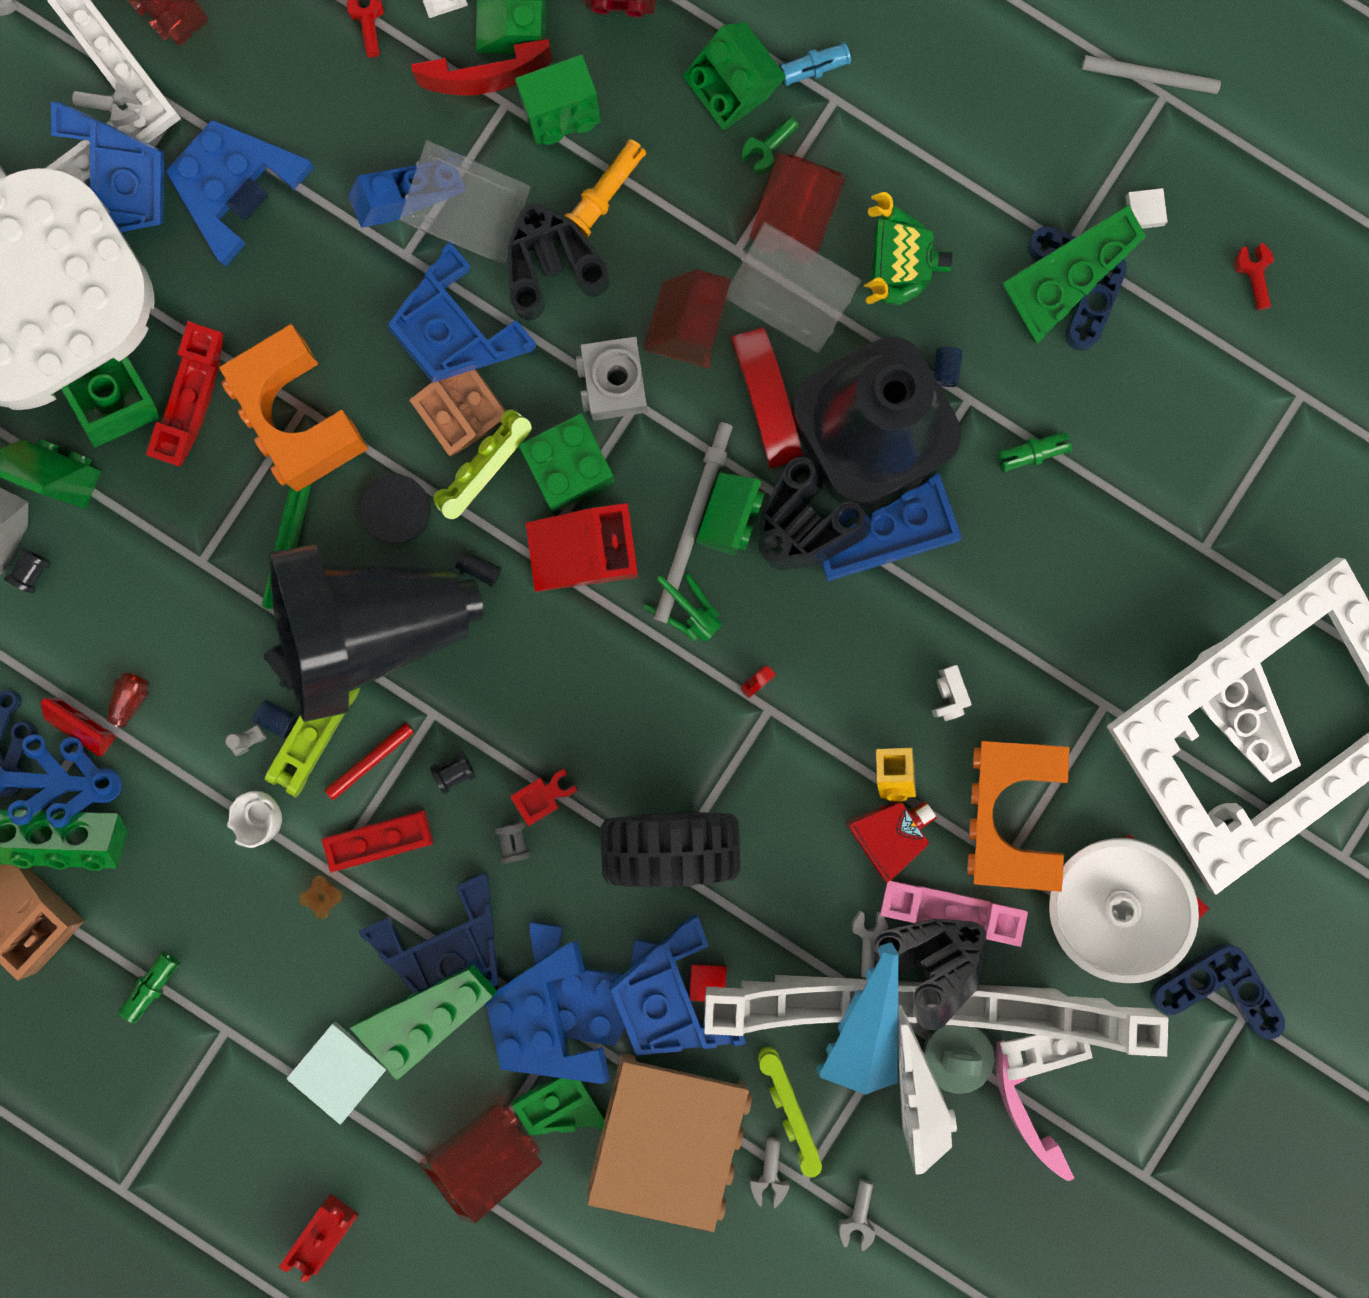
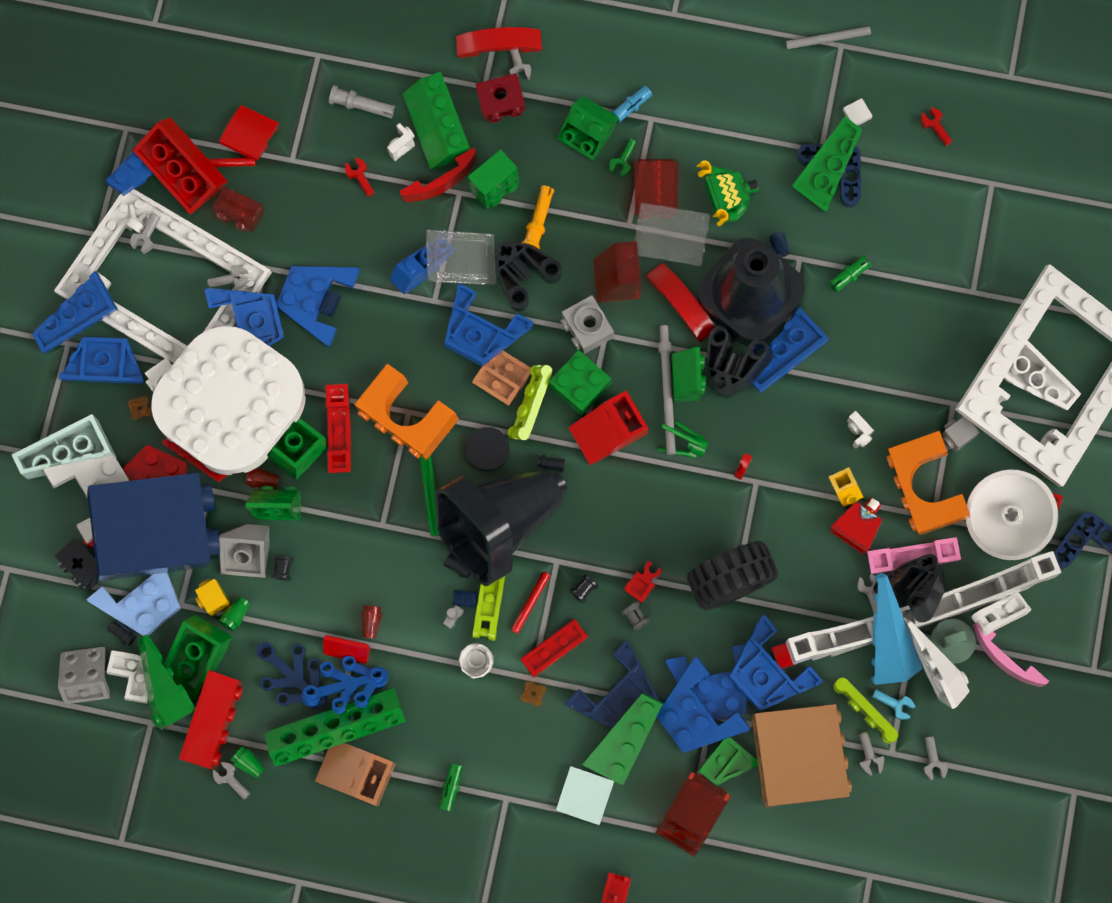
camera: 15 degrees left, 10 degrees down
(46, 425) = (258, 477): none -> clear red cone
(838, 1115) = (895, 704): none -> medium azure bar
(1095, 756) = (959, 433): none -> light grey brick

